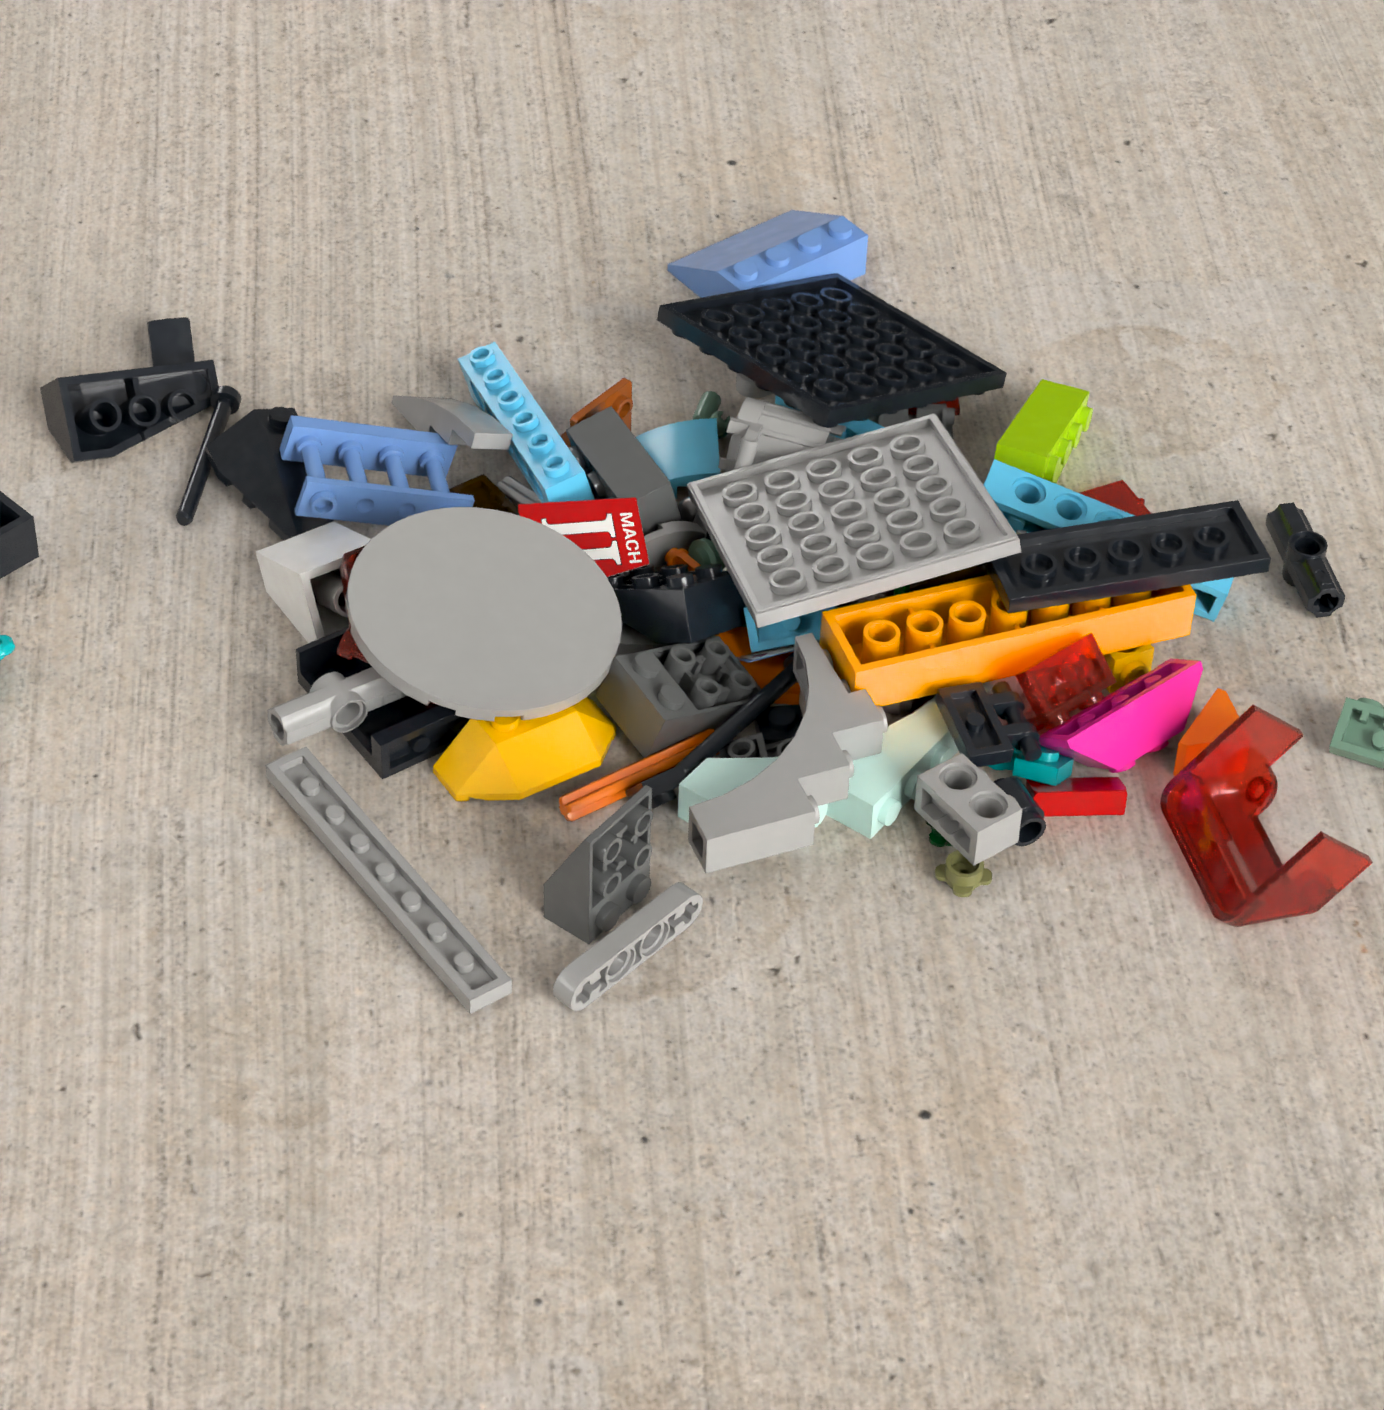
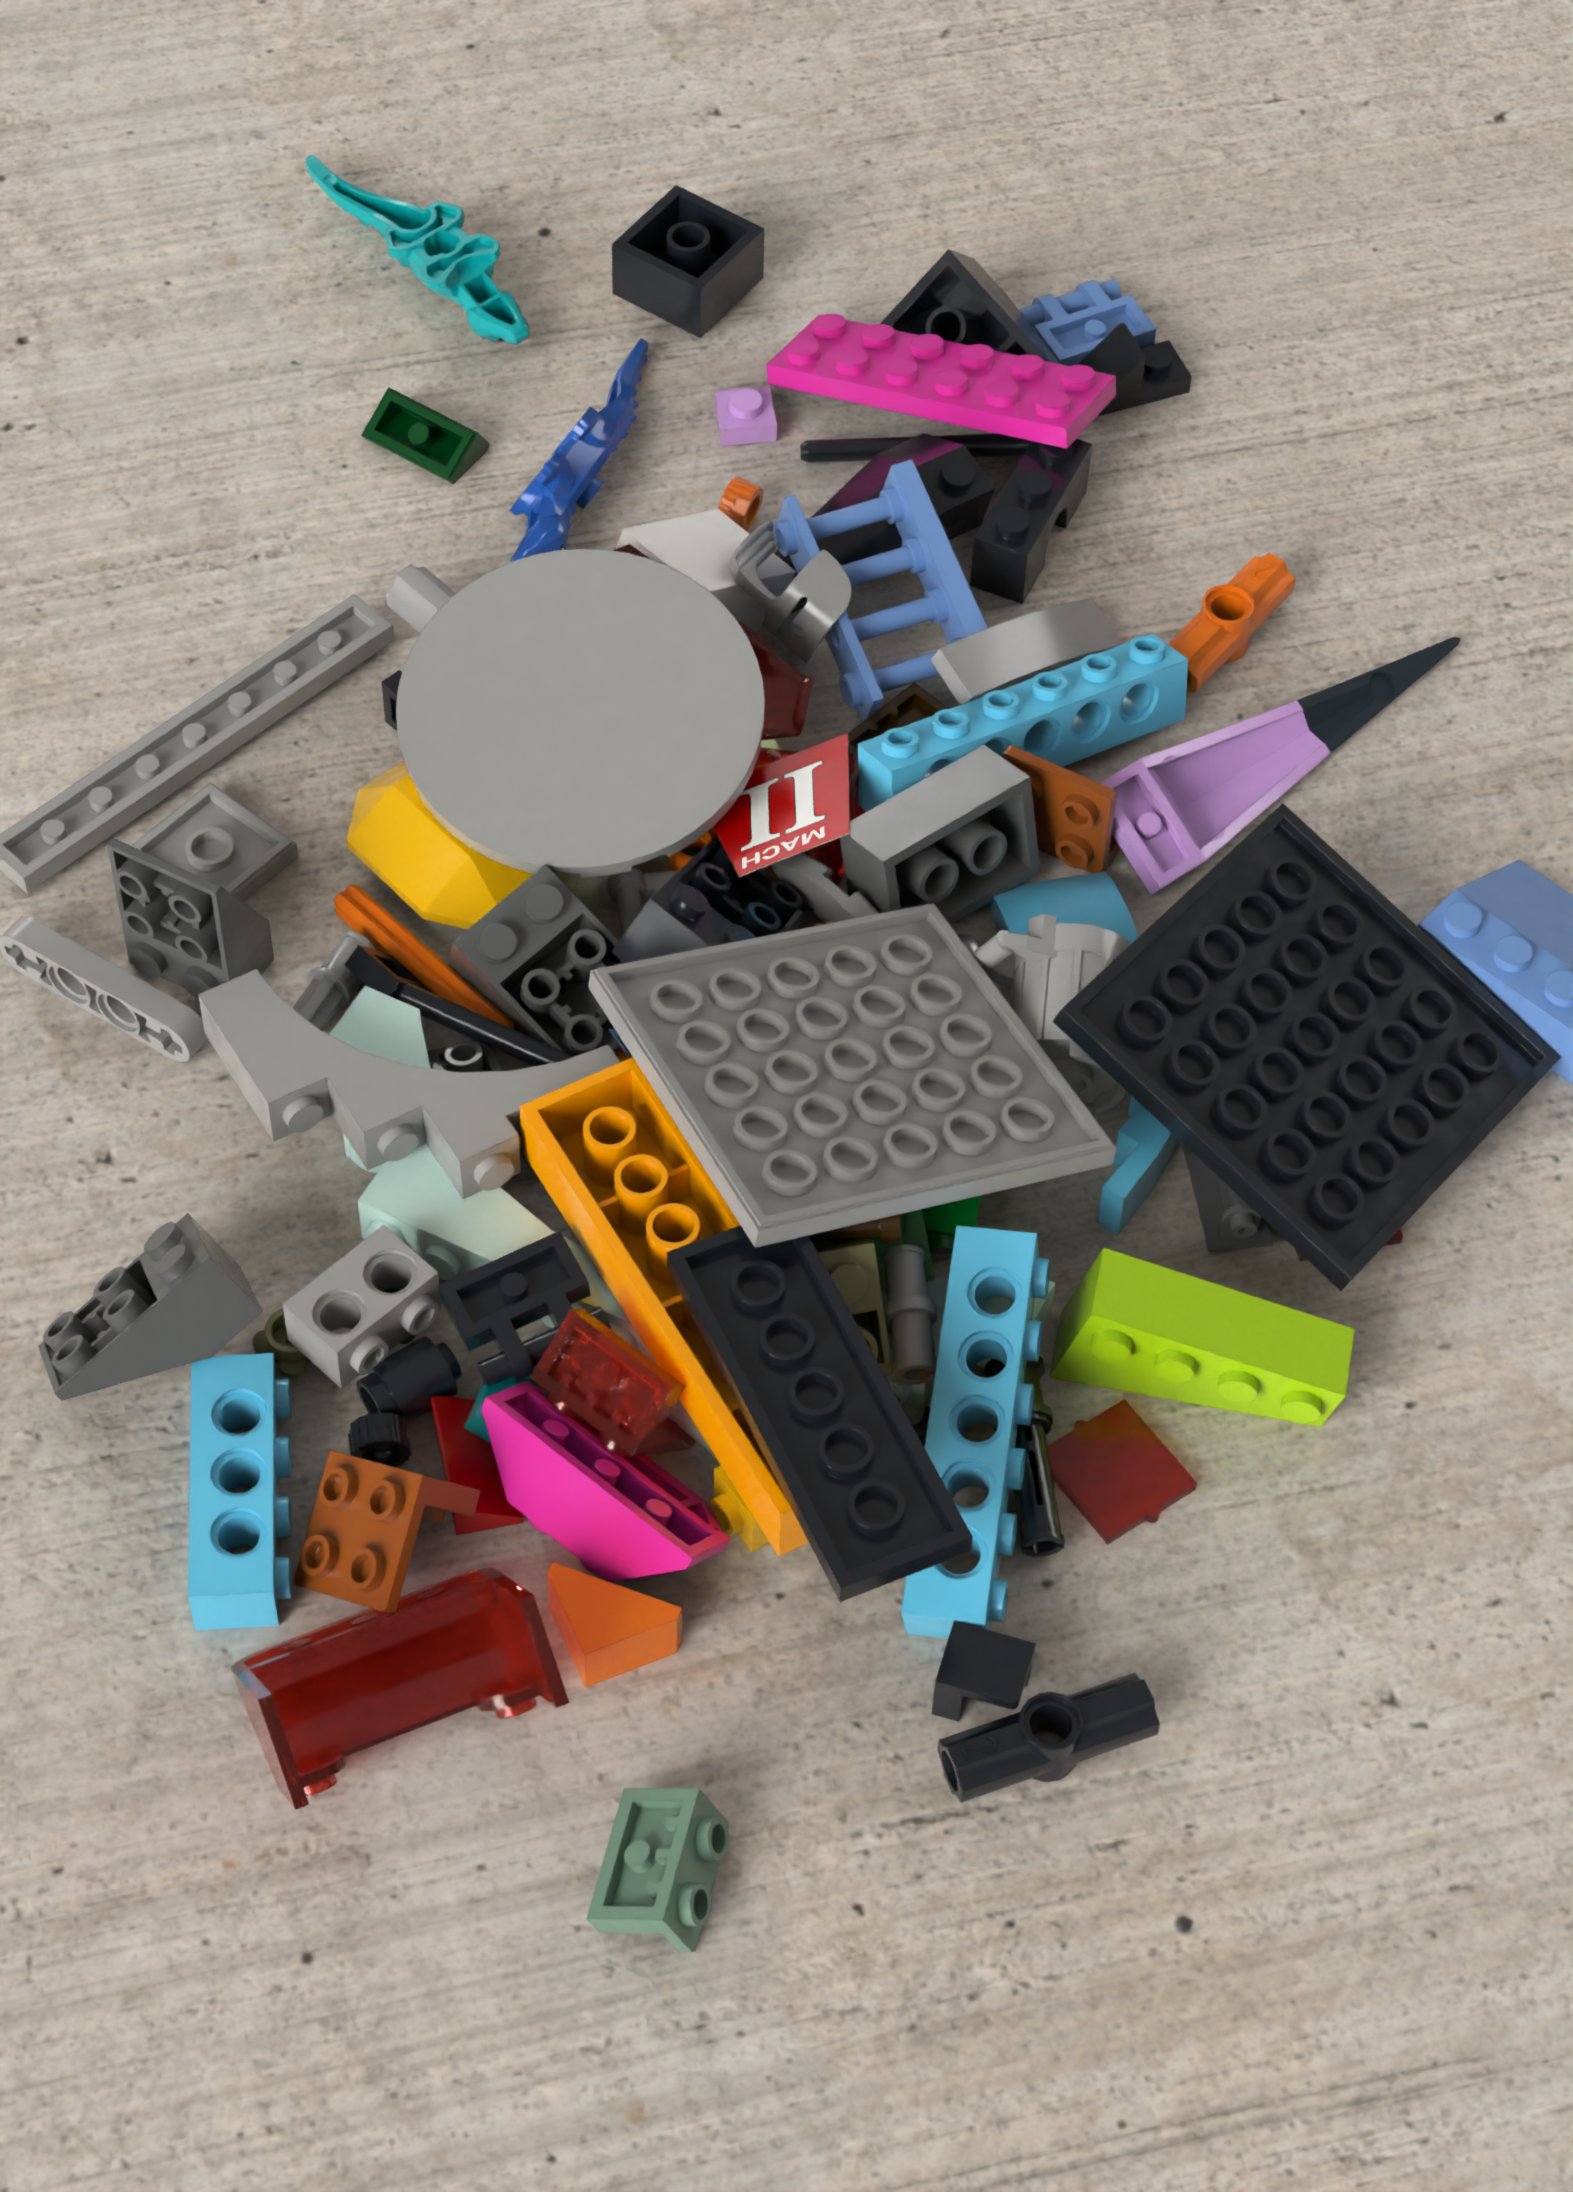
camera: 80 degrees right, 10 degrees up
(88, 720) = (424, 436): none -> dark green slope
(120, 344) = (1083, 318): none -> medium blue plate
(134, 544) = (745, 416): none -> lavender plate
(163, 423) = (943, 380): none -> dark pink plate
(168, 630) = (572, 467): none -> blue animal
(236, 553) = (741, 502): none -> orange axle
(280, 385) = (1016, 531): none -> black arch
(394, 498) = (820, 581): none -> light grey helmet
(430, 333) = (1231, 616): none -> orange piece
(494, 883) = (220, 843): none -> light grey tile
(572, 365) = (1201, 793): none -> lavender plate
(662, 828) = (331, 983): none -> light grey axle
(957, 925) = (153, 1316): none -> dark grey slope
(1058, 832) = (380, 1438): none -> black axle
(1092, 906) = (225, 1586): none -> medium azure brick
(1143, 827) = (368, 1528): none -> dark orange bracket
(1261, 591) = (982, 1668): none -> black panel

